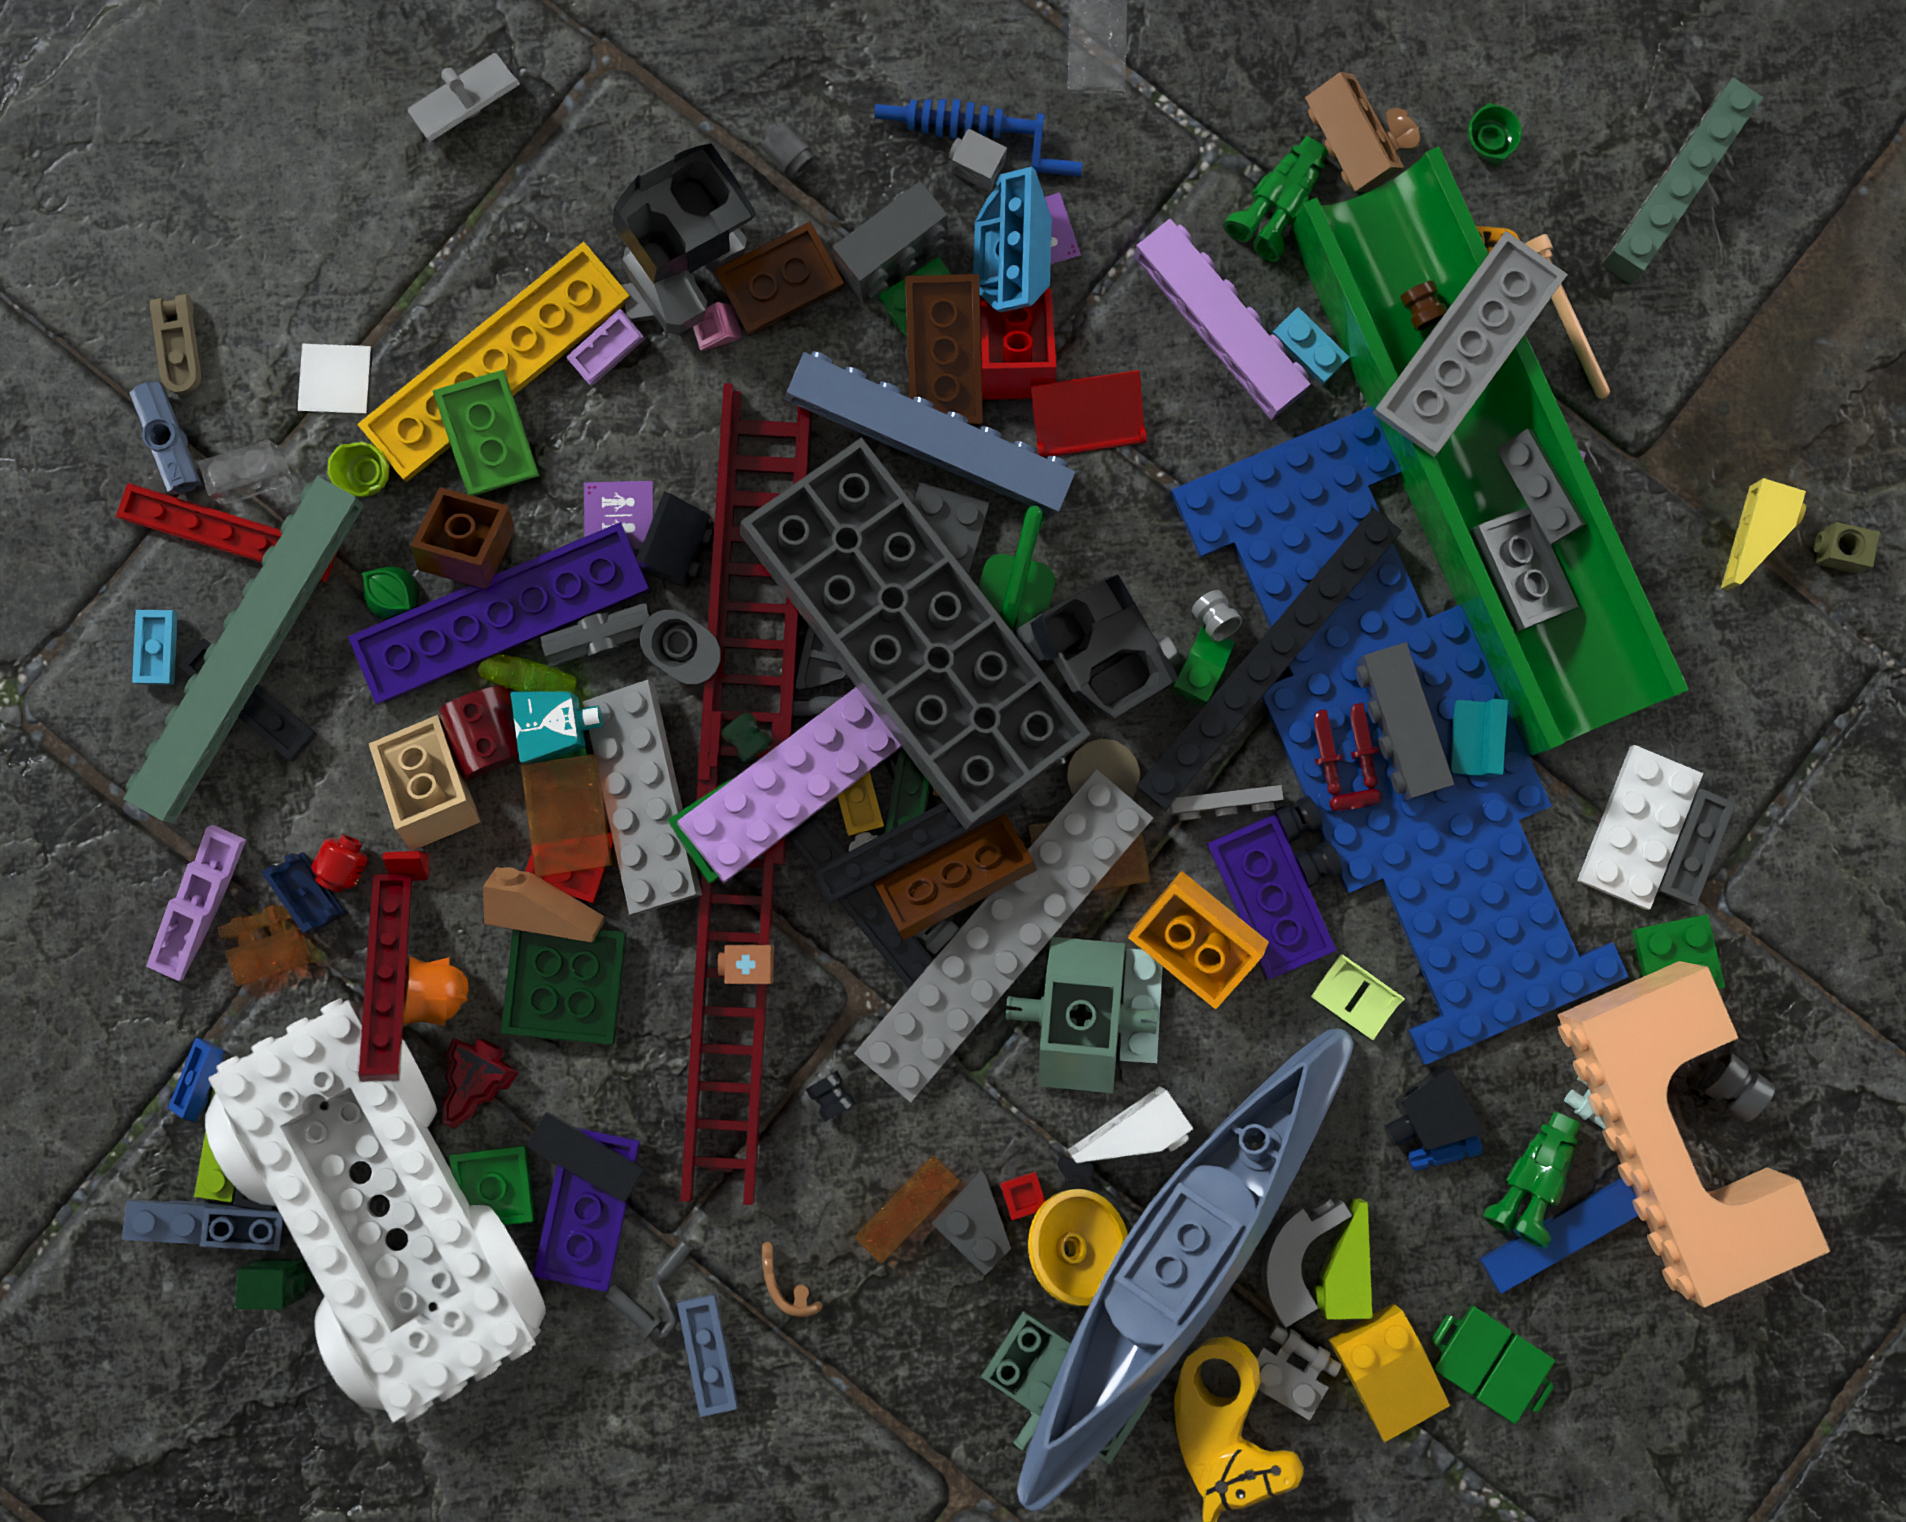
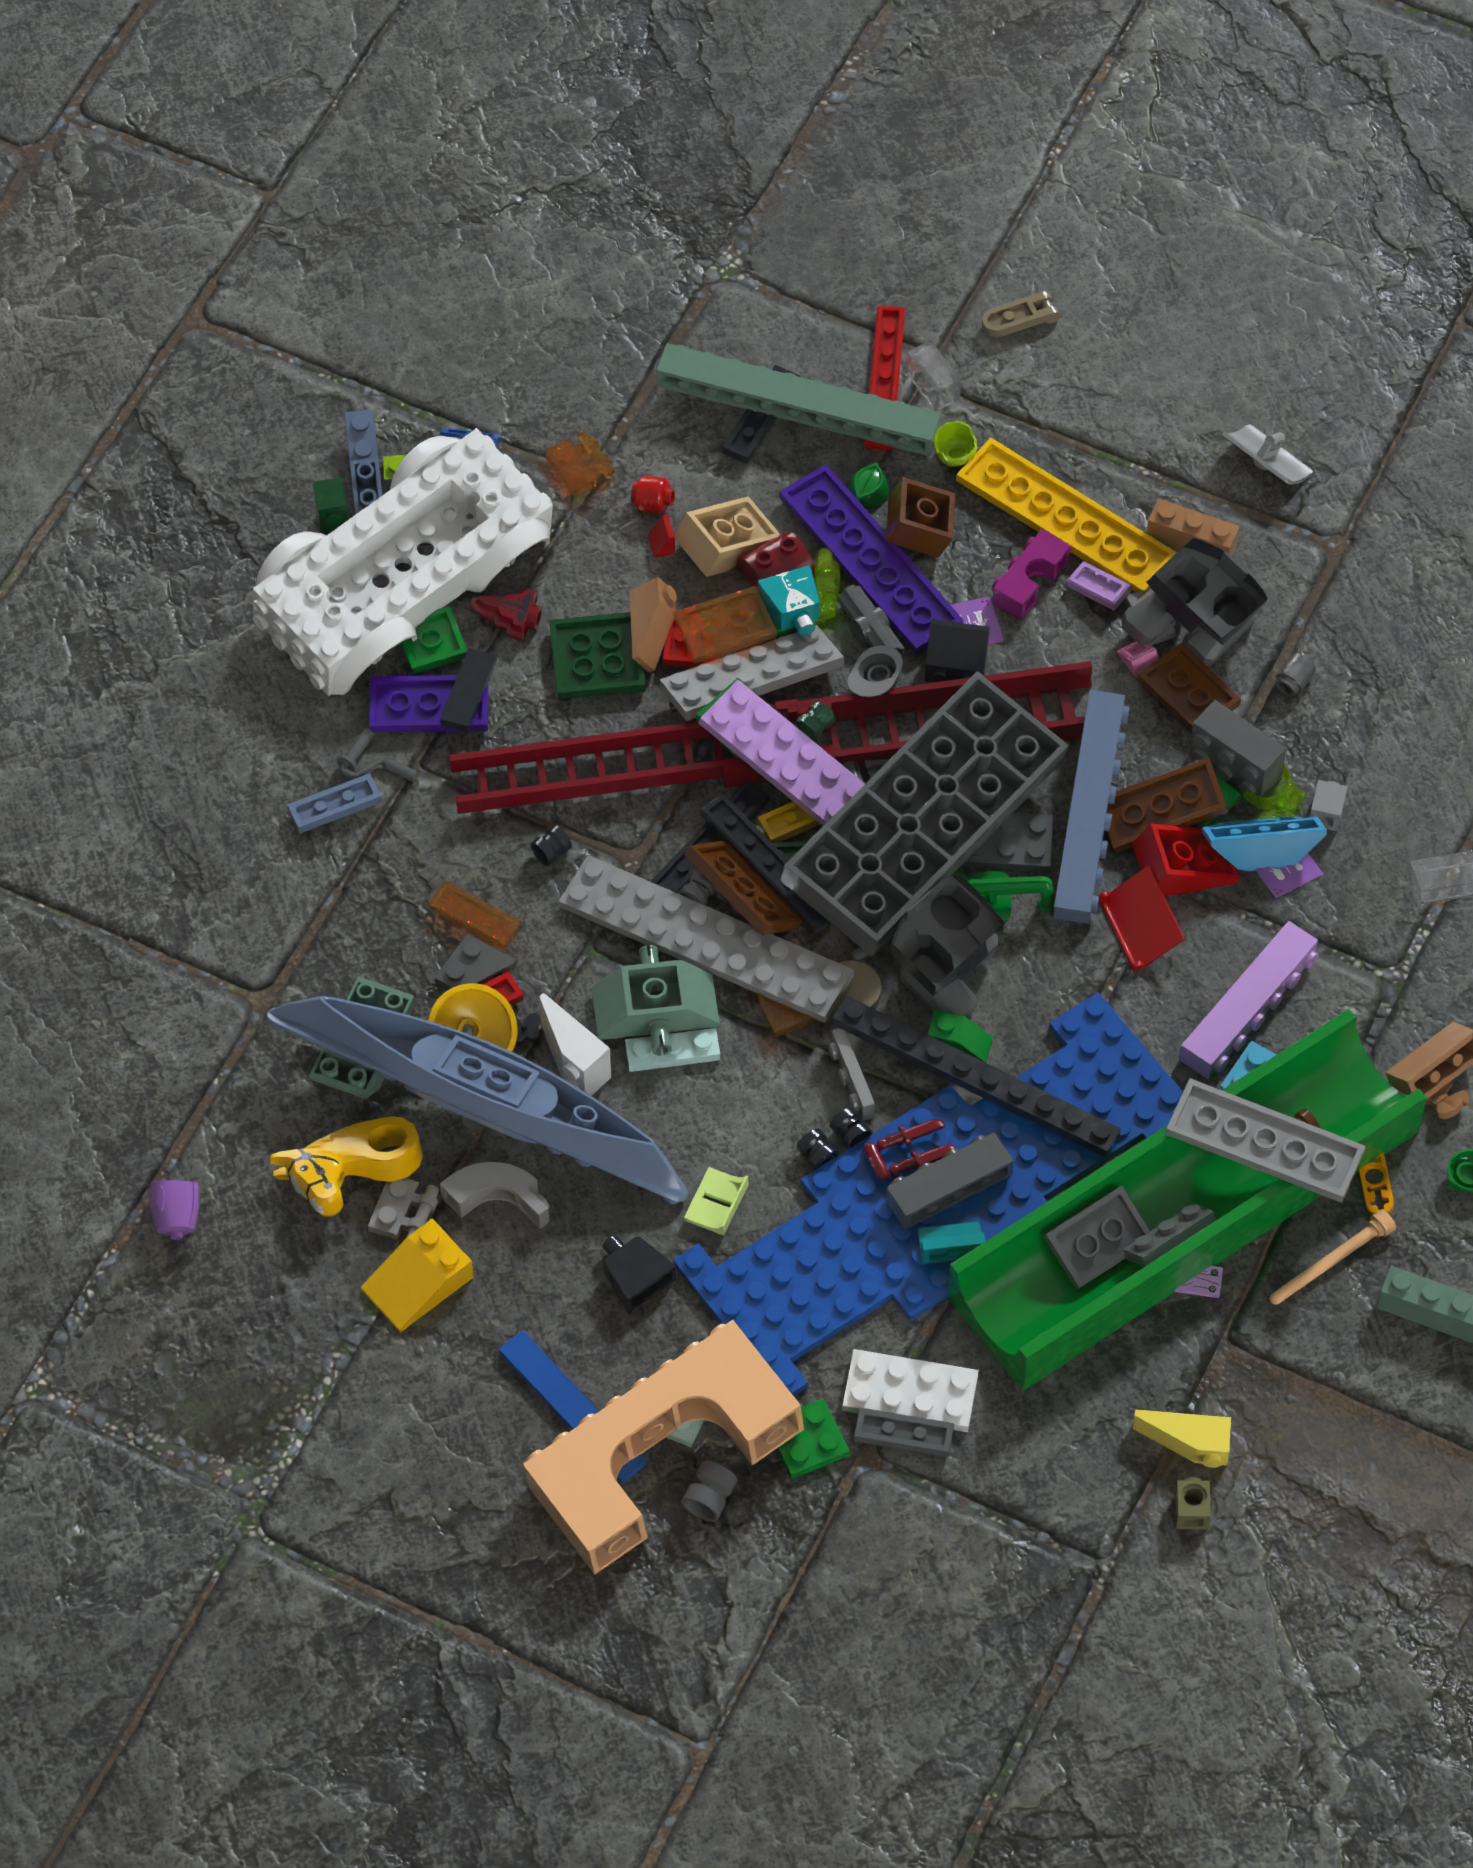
camera: 80 degrees right, 25 degrees down
(155, 647) = (785, 349): medium azure plate -> none
(156, 419) = (946, 320): sand blue piece -> none
(196, 903) = (608, 415): lavender slope -> none
(302, 896) = (616, 479): dark blue hinge -> none
(334, 378) = (1024, 420): white sticker -> none
(385, 978) = (575, 527): dark red plate -> none
(433, 991) = (569, 566): orange helmet -> none
(485, 433) = (1007, 519): bright green tile -> none
(548, 401) = (1041, 556): none -> magenta arch
(559, 215) = (1178, 525): none -> medium nougat brick
(747, 964) = (640, 756): nougat brick -> none
(800, 1307) = (392, 857): medium nougat piece -> none
(958, 206) = (1285, 801): none -> clear neon green helmet
(998, 124) = (1359, 801): blue piece -> none
(1198, 940) = (734, 1065): light orange brick -> none
(1217, 616) = (1002, 1038): light grey wheel -> none
(1271, 895) = (777, 1123): dark purple plate -> none
(1282, 193) = (1373, 1025): green piece -> none
(1346, 1273) = (495, 1229): lime slope -> none
(1421, 1159) = (604, 1289): blue axle -> none
(1478, 1354) = (439, 1353): green piece -> none
(1537, 1174) = (596, 1353): green piece -> none

